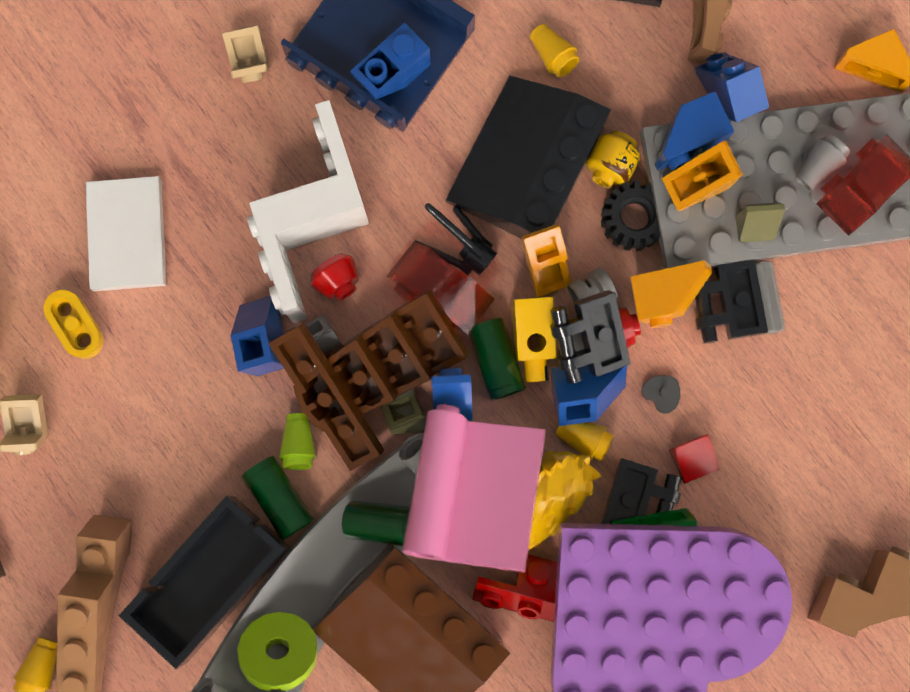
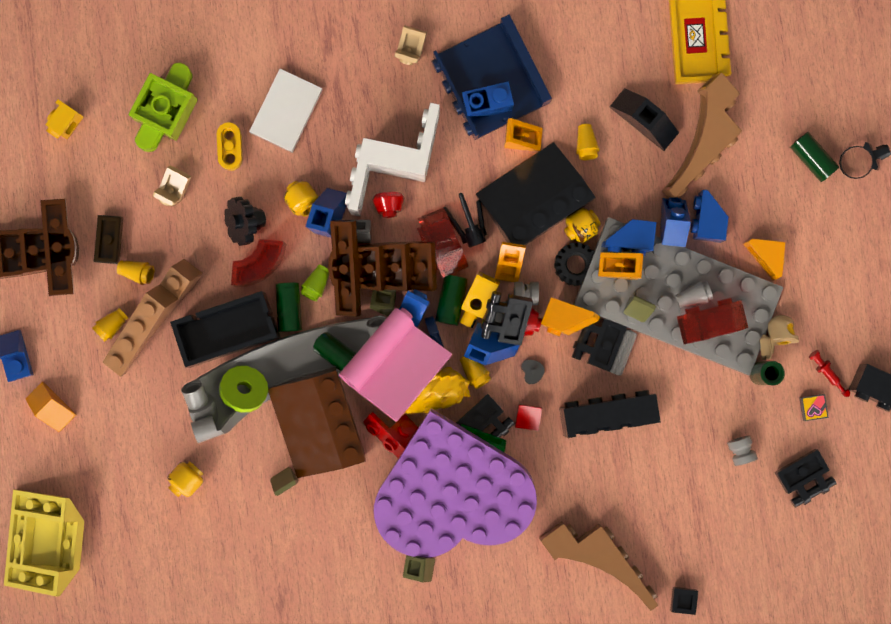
camera: 25 degrees right, 5 degrees up
(37, 570) = (136, 271): none -> yellow cone
(147, 413) = (243, 220): none -> black plant
(203, 461) = (259, 264): none -> clear red brick
(209, 338) = (300, 197): none -> yellow head
(462, 89) = (522, 136): none -> light orange slope
(494, 412) = (433, 330): none -> dark blue bar
(778, 53) = (710, 219): none -> blue slope
(802, 391) = (609, 414): none -> black wedge

